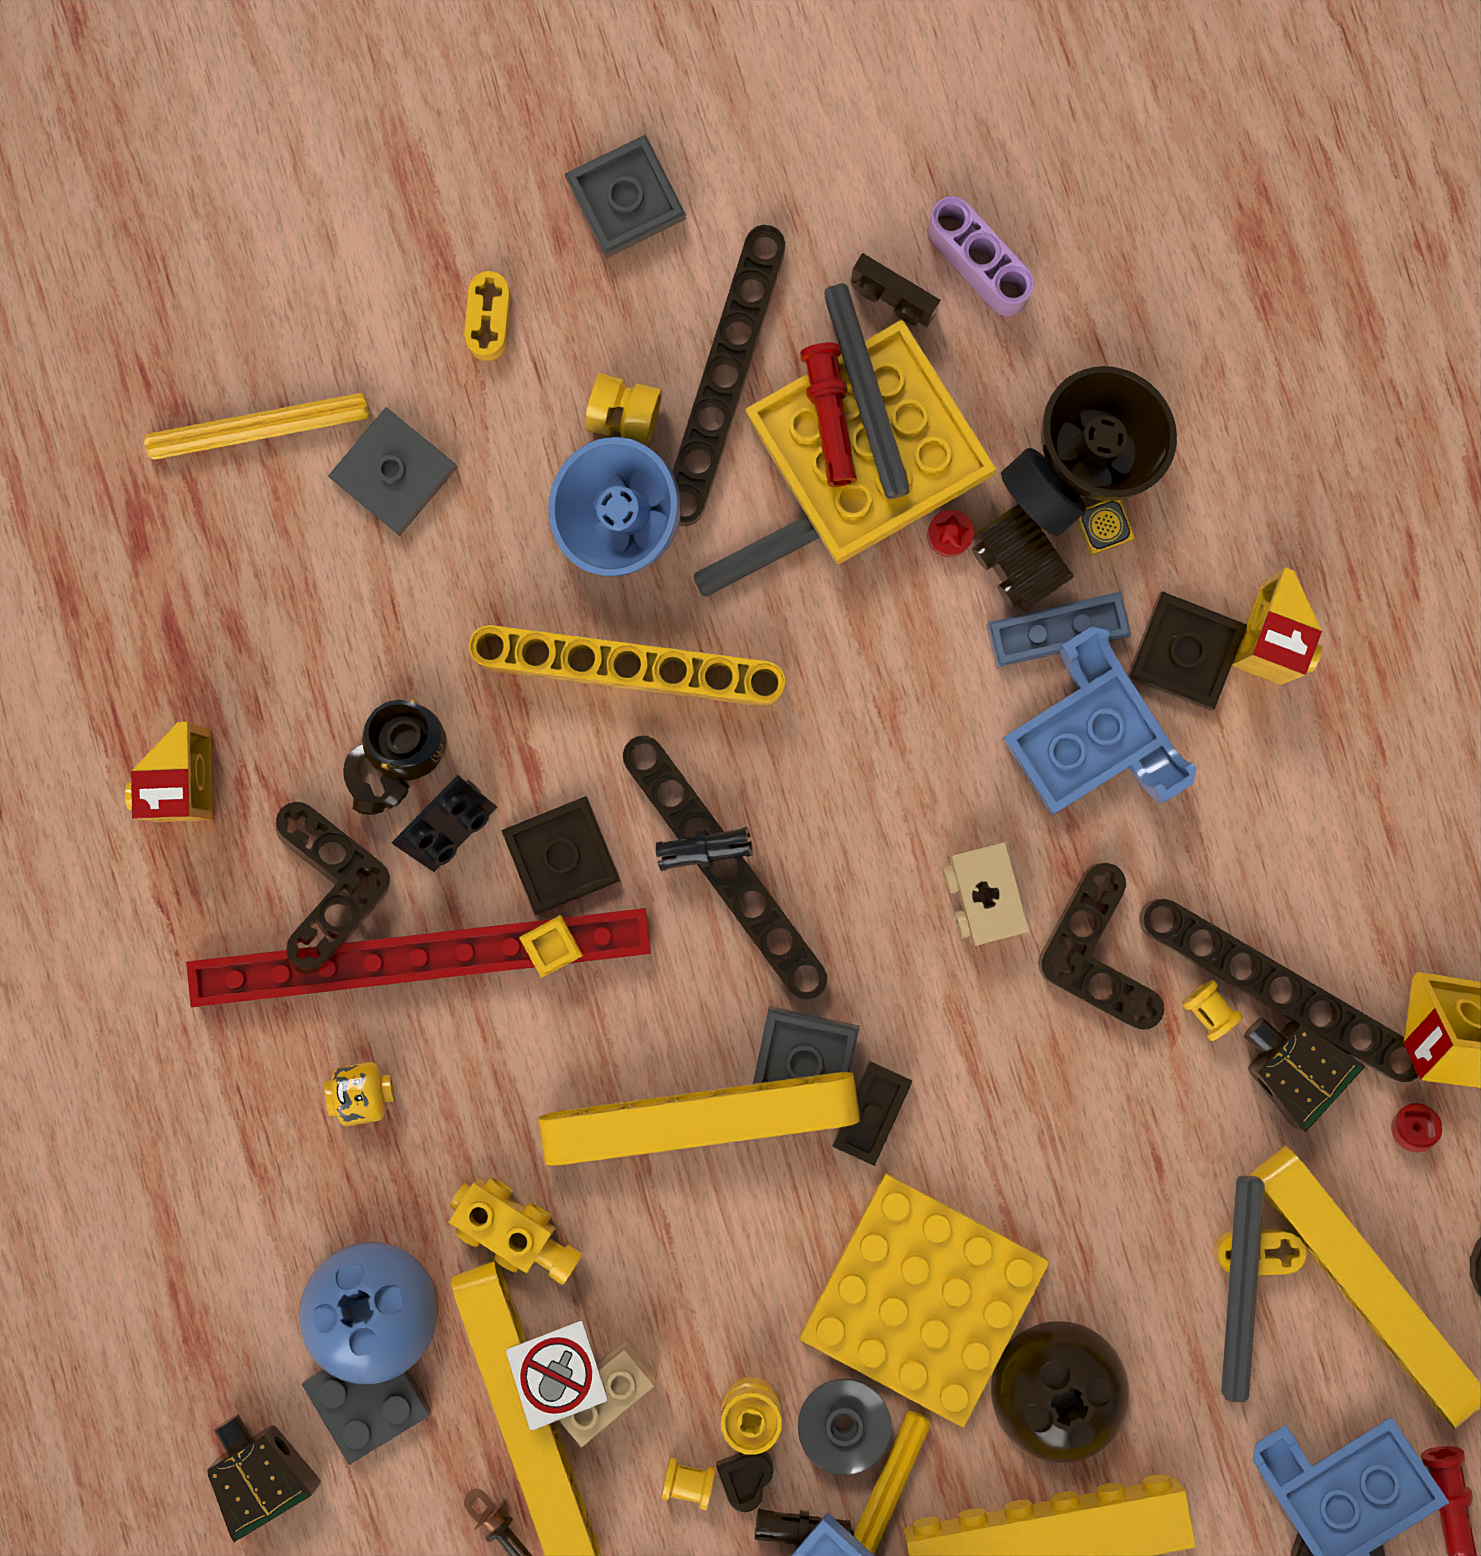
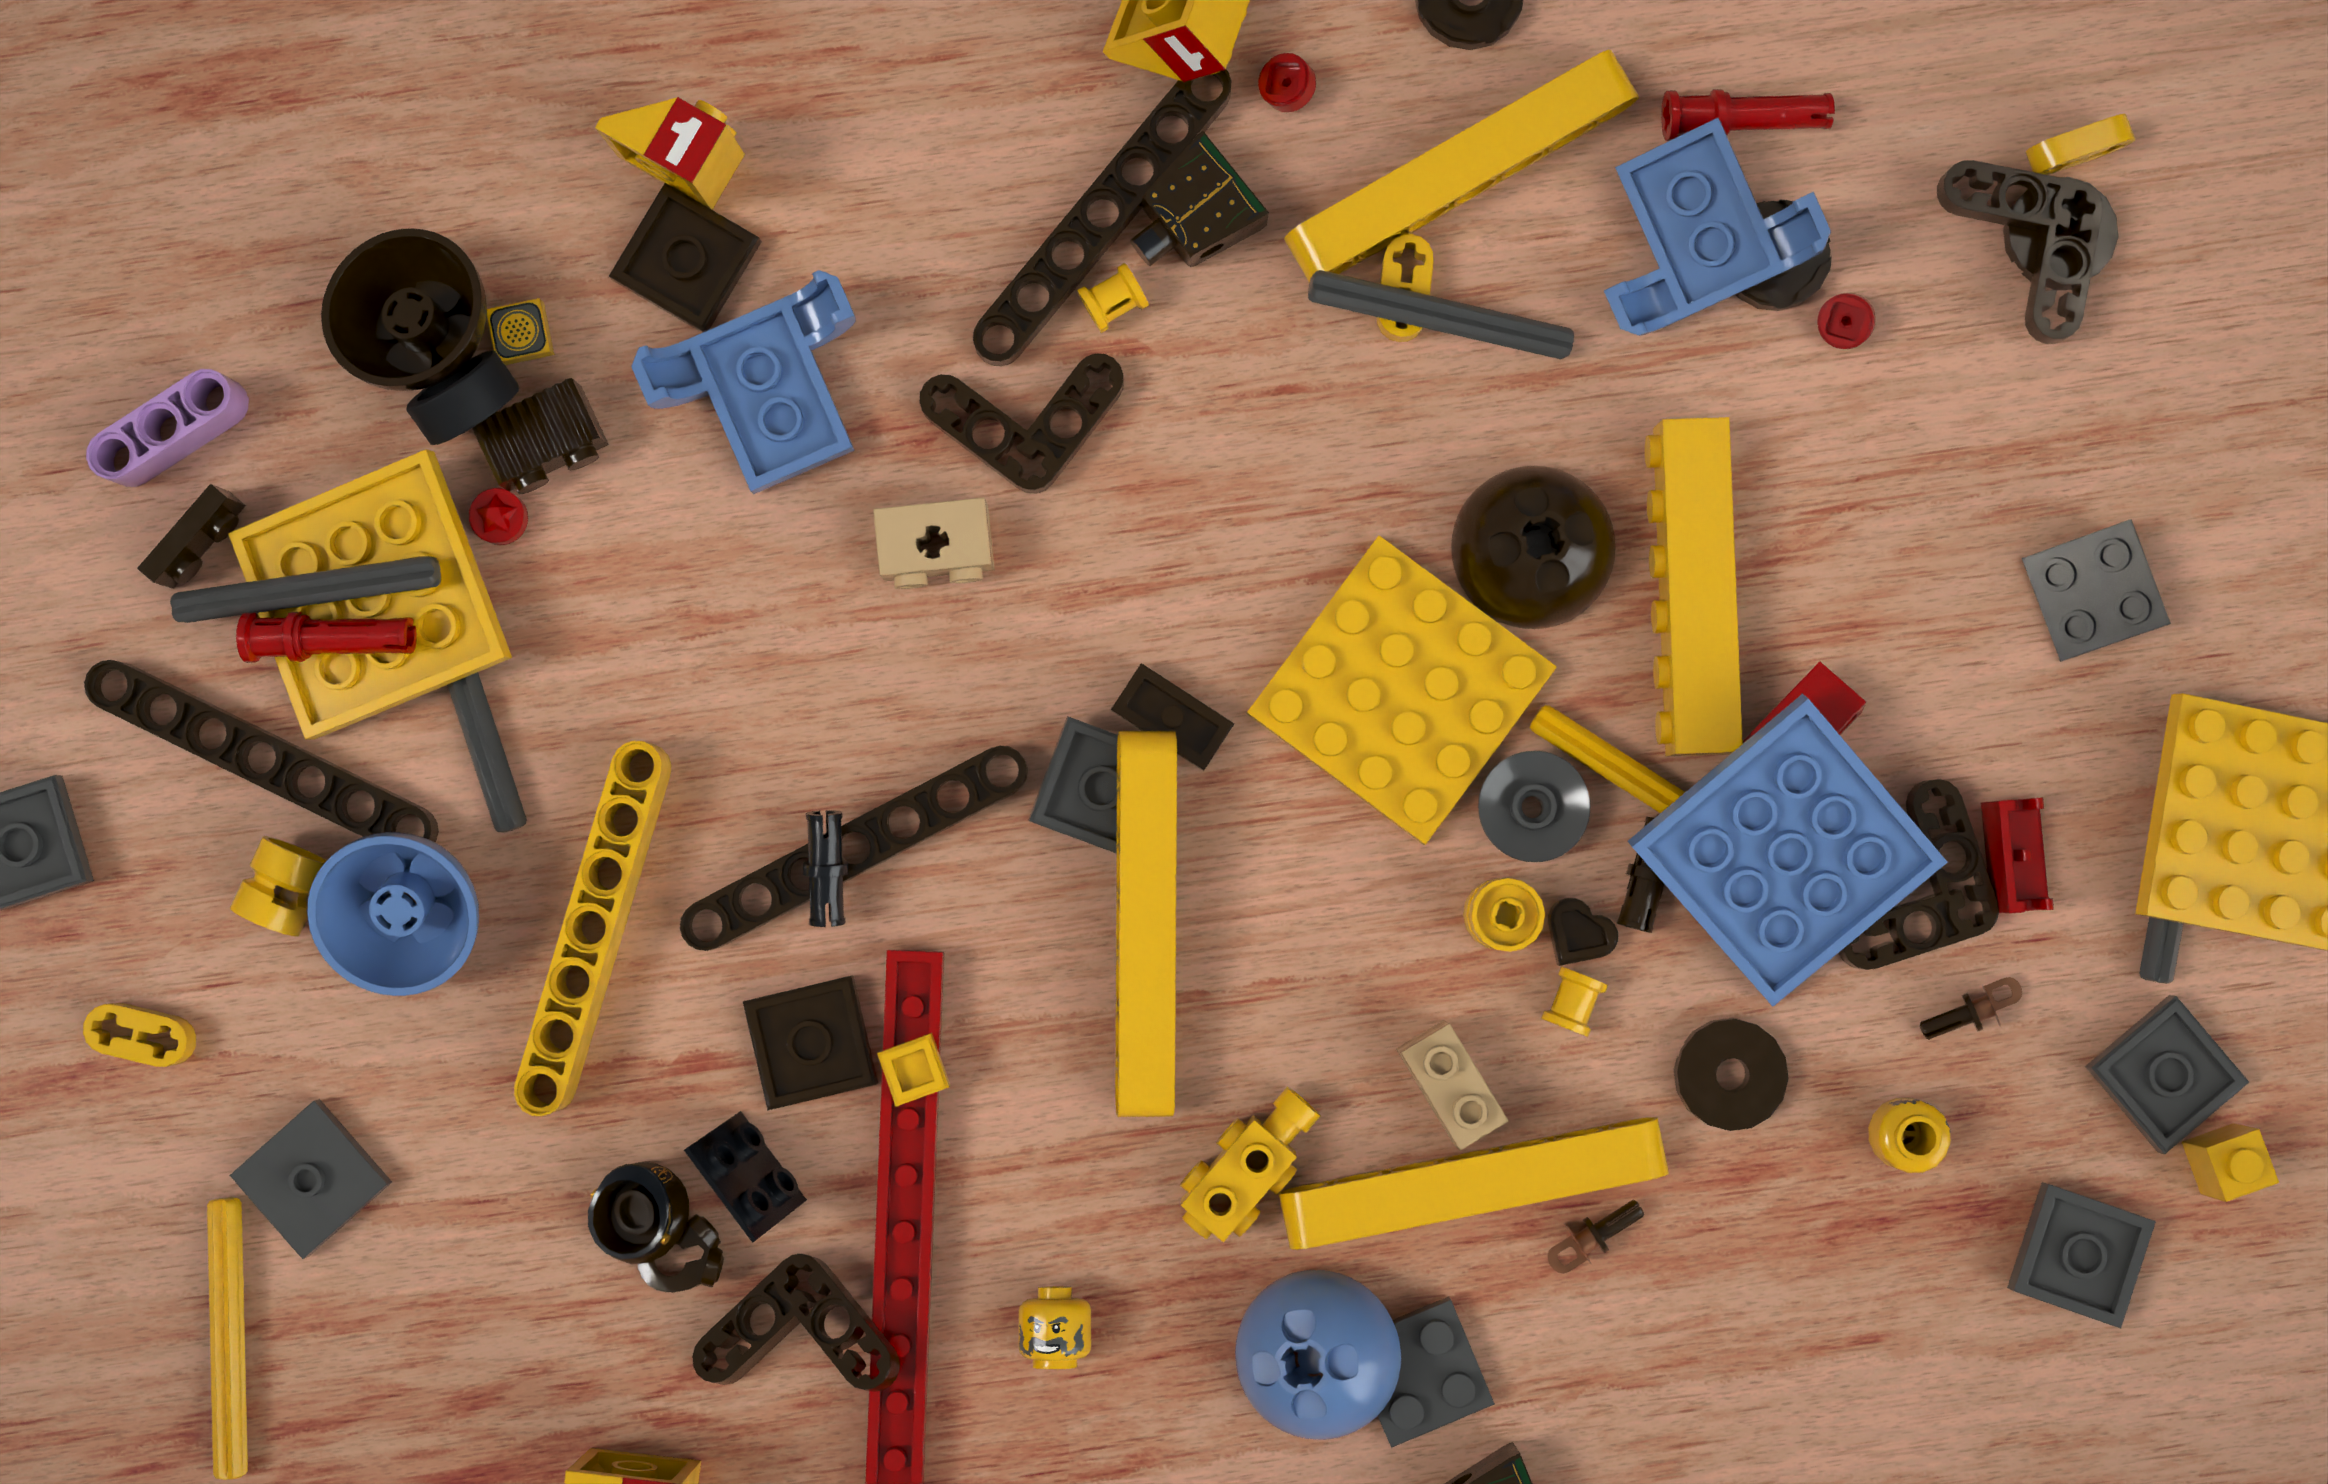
camera: 80 degrees left, 0 degrees up
(556, 1375) = (1419, 1138): sticker -> none
(1044, 631) = (634, 429): sand blue tile -> none

